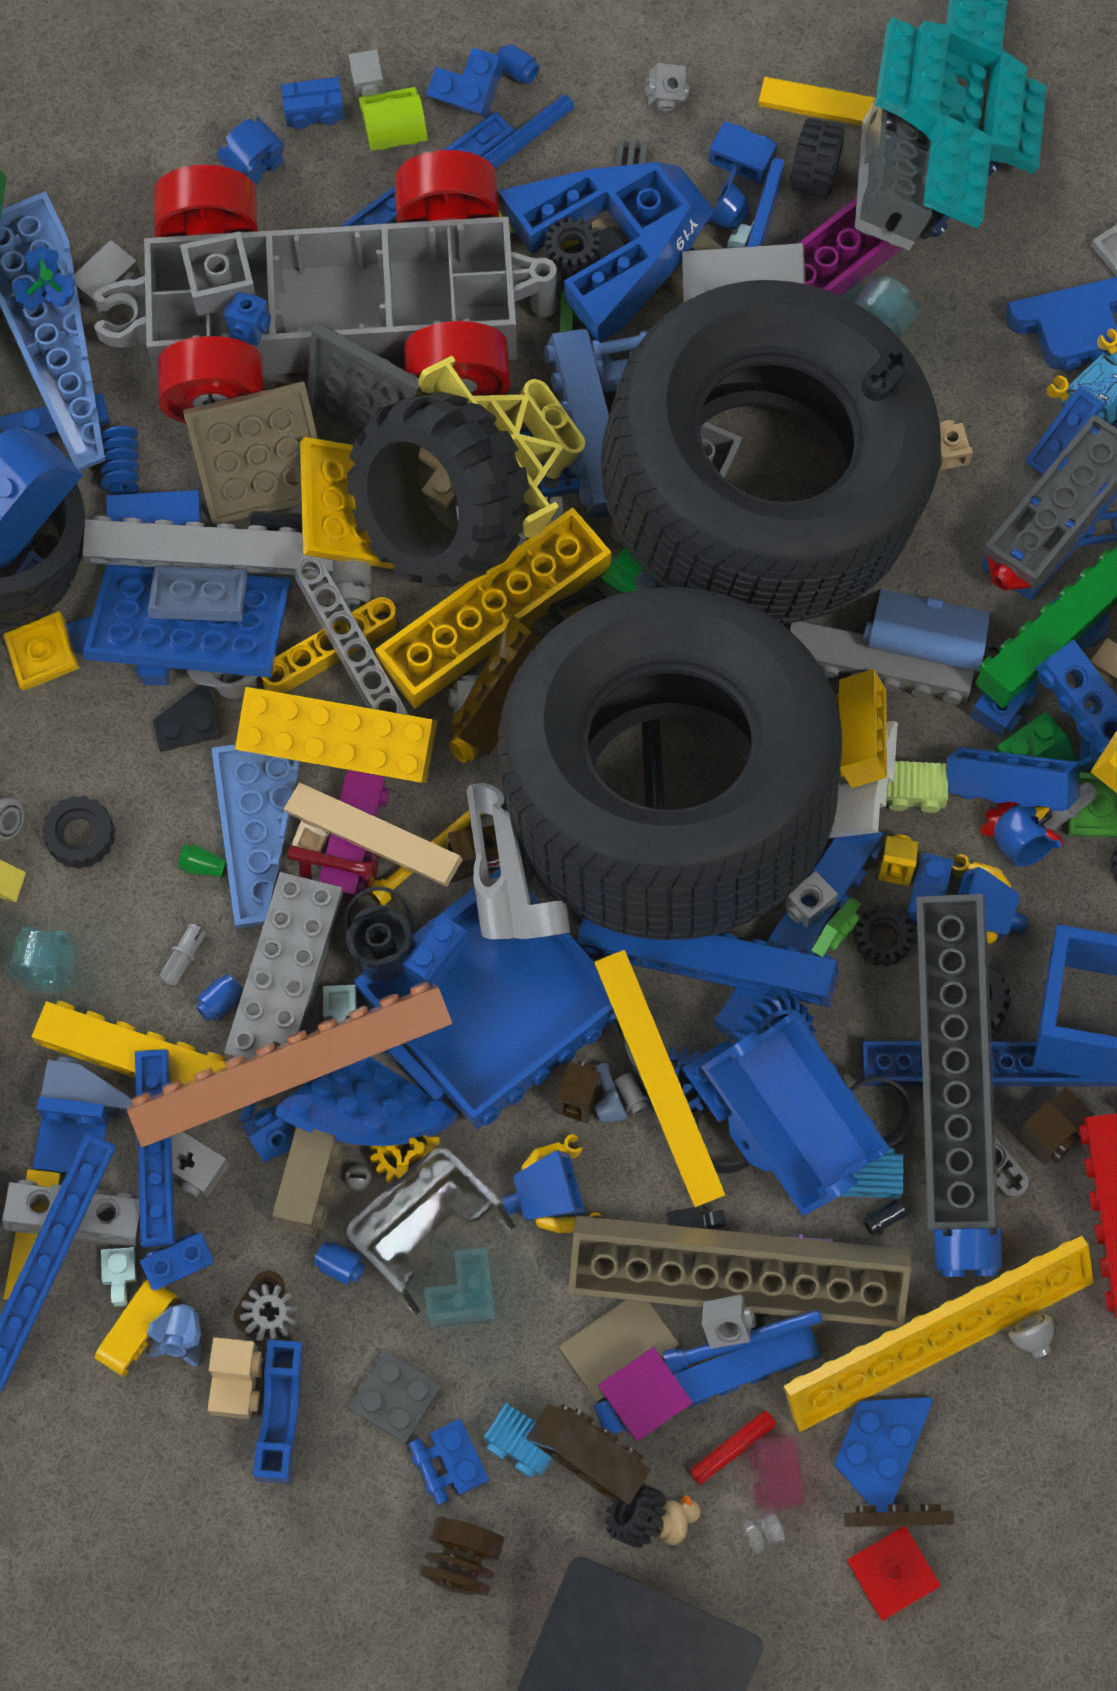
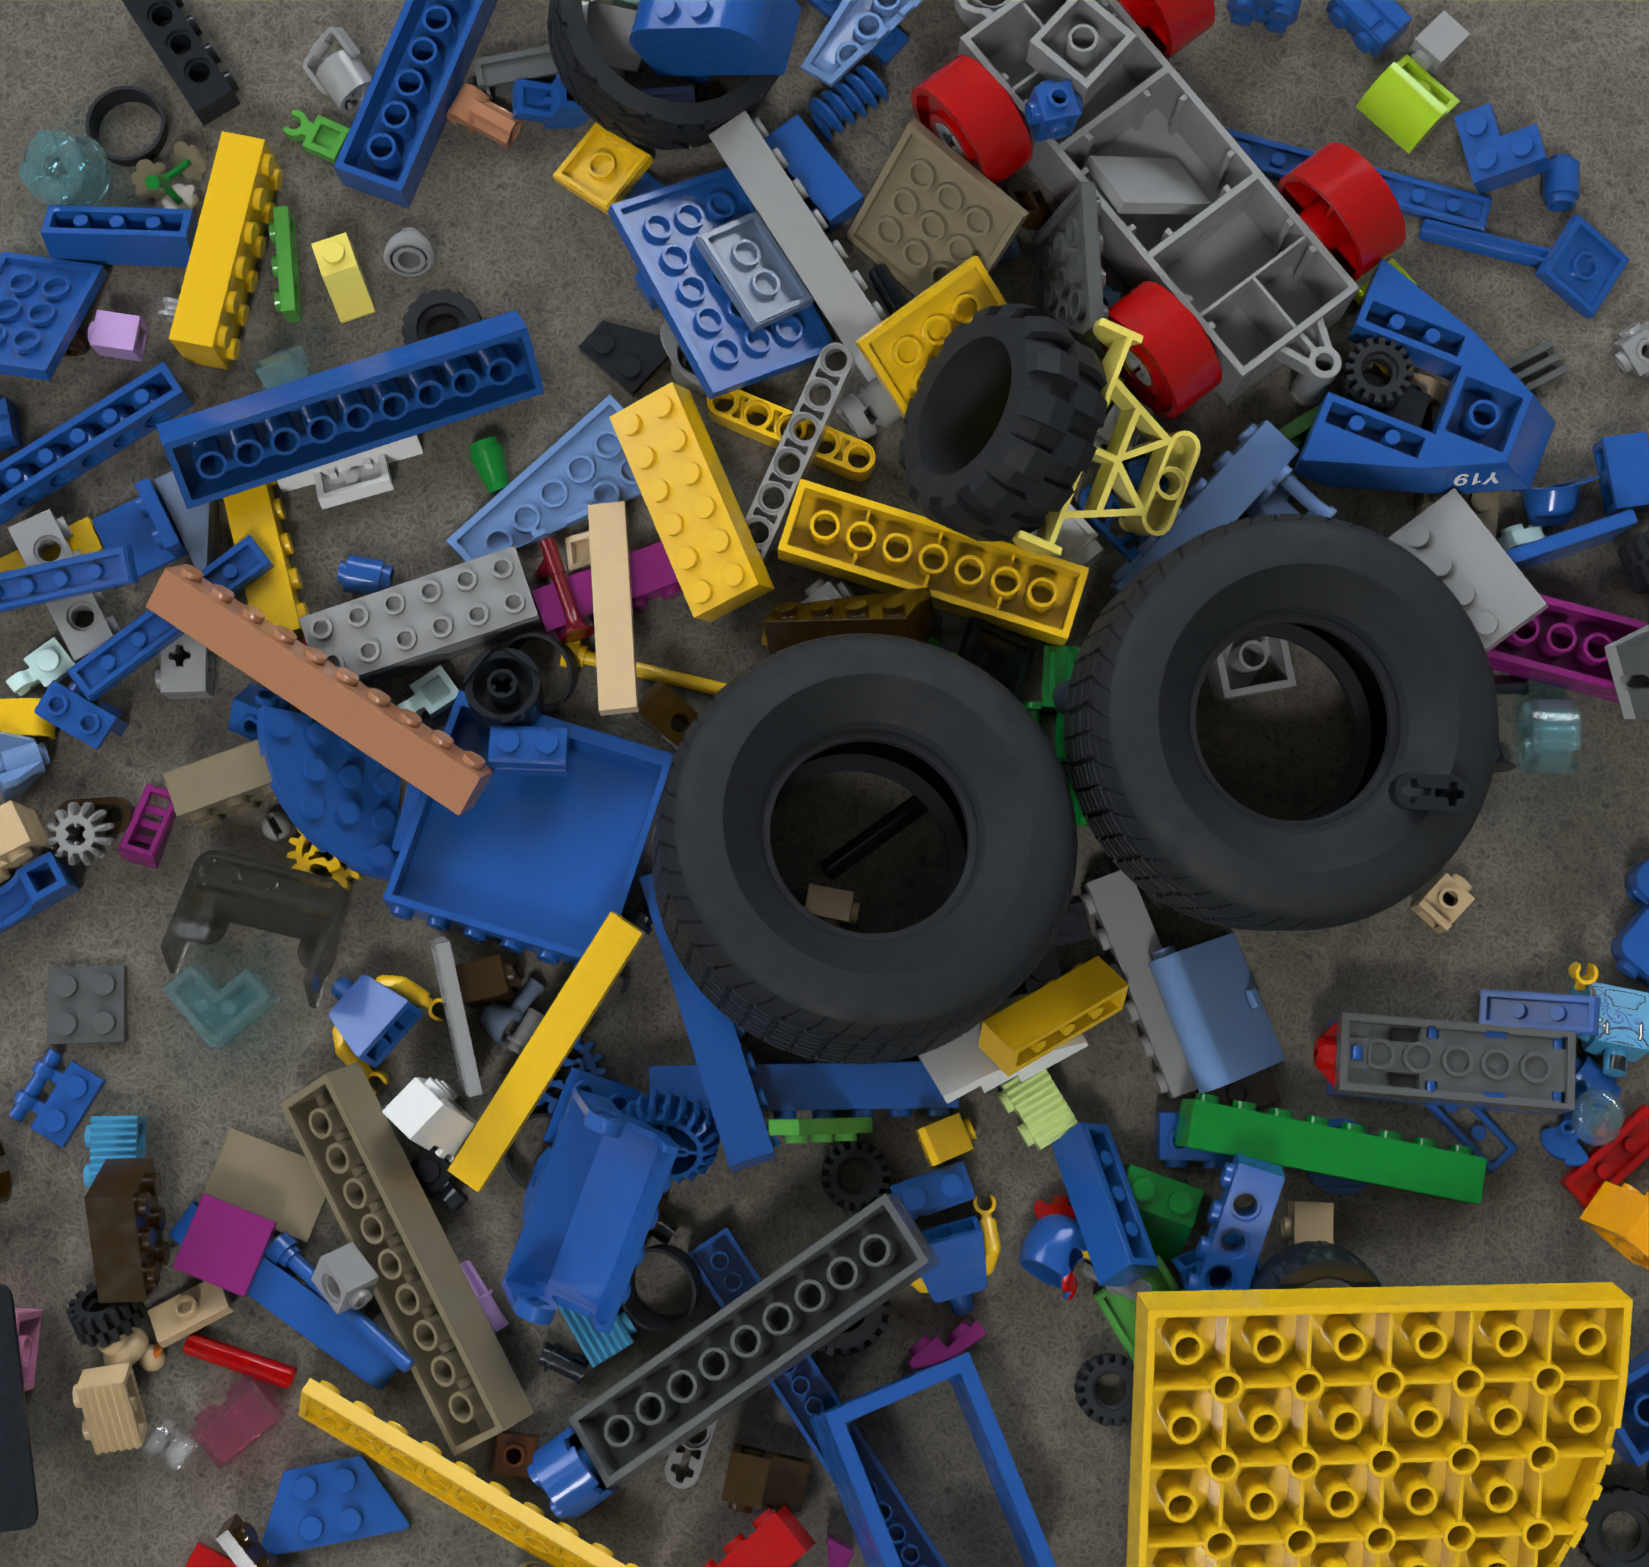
camera: 55 degrees right, 10 degrees up
(97, 921) = (351, 409): none -> blue brick
(132, 960) = (355, 475): none -> white bracket
(182, 954) = (386, 512): light grey axle -> none
(305, 1285) = (157, 844): none -> magenta slope
(335, 302) = (1147, 185): none -> light grey tile
(339, 1262) = (176, 863): blue brick -> none
(505, 901) = (624, 772): light grey panel -> none
(583, 88) = (1582, 266): none -> blue tile
(590, 1124) = (455, 1015): none -> light grey tile
(652, 1187) = (431, 1116): none -> white wedge
(673, 1459) = (189, 1312): none -> tan plate
(709, 1555) = (111, 1408): none -> tan brick
(814, 887) = (844, 1094): light grey brick -> none
(924, 1299) = (524, 1442): none -> reddish brown plate
(1040, 955) = (933, 1351): none -> magenta slope

